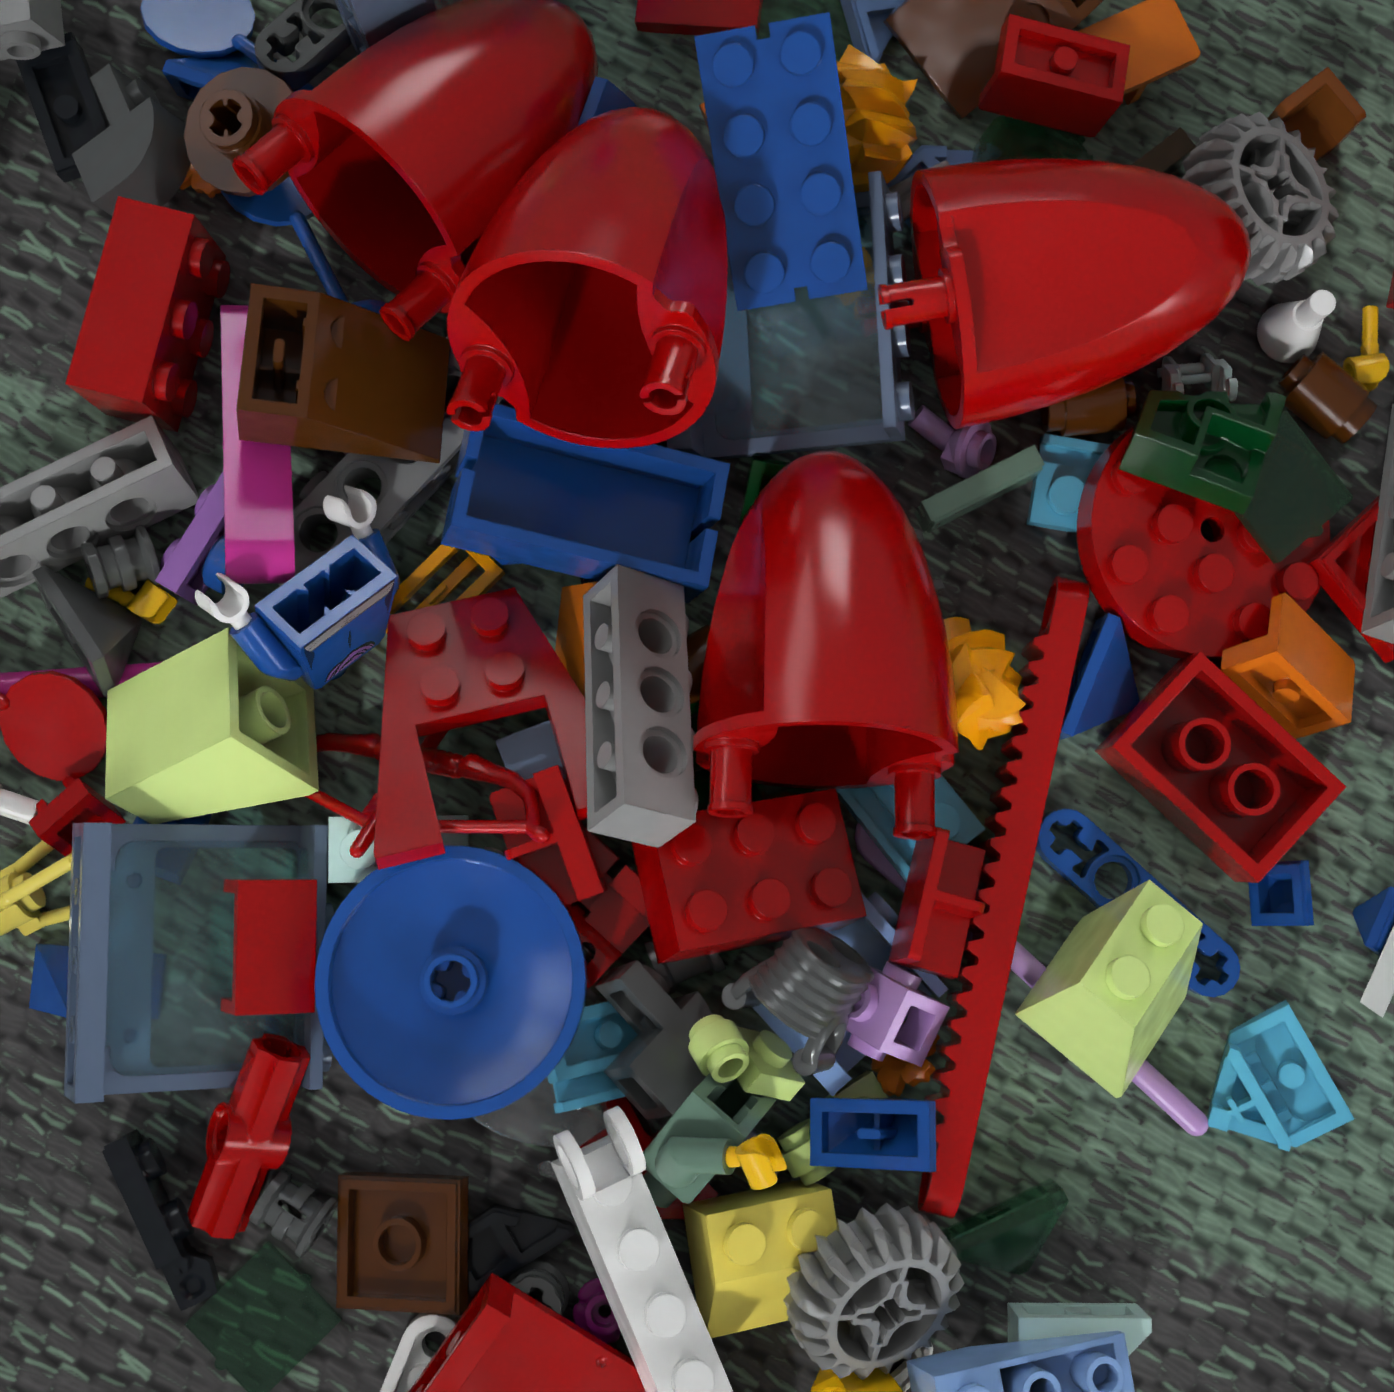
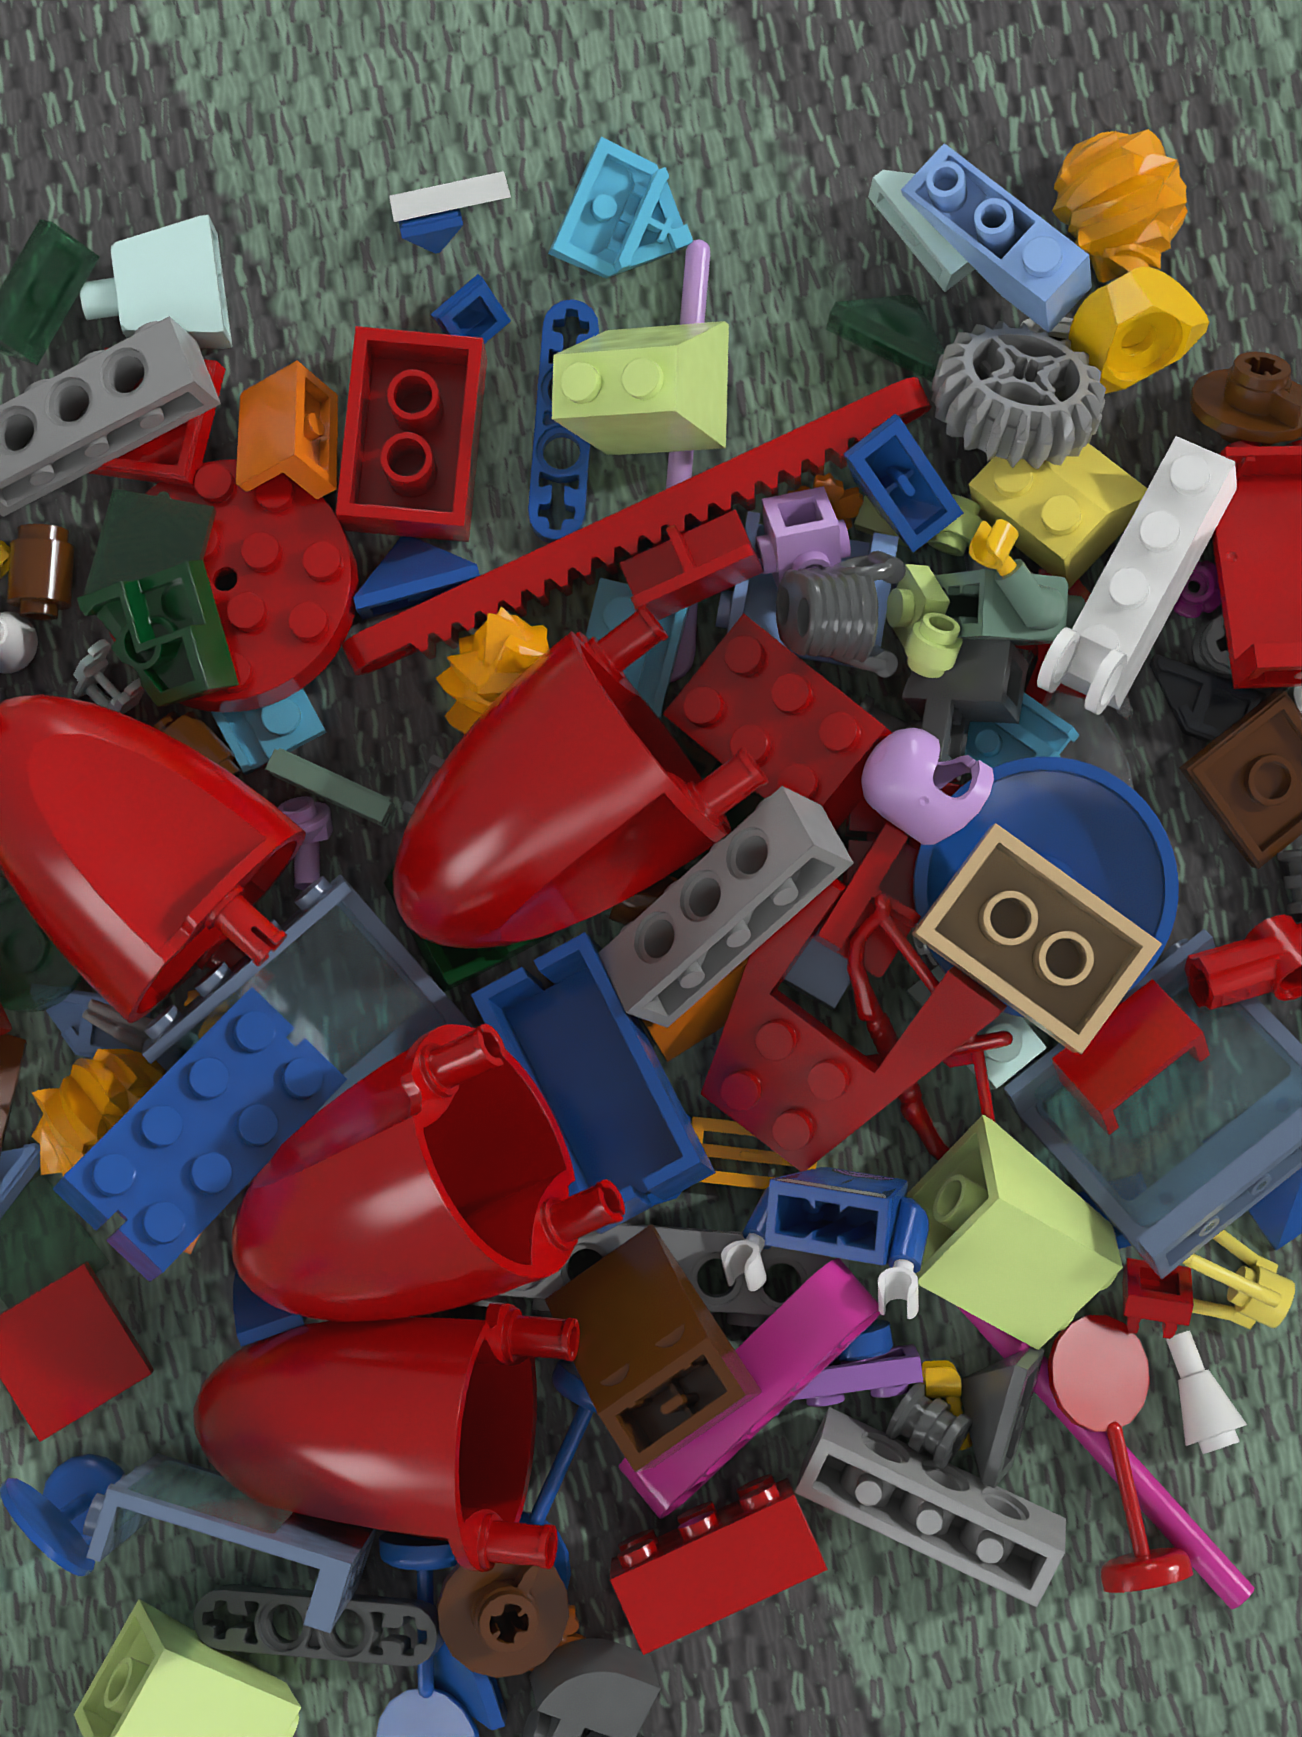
camera: 125 degrees left, 0 degrees up
(408, 932) = (1036, 939): none -> tan brick
(625, 929) = (905, 784): none -> lavender helmet

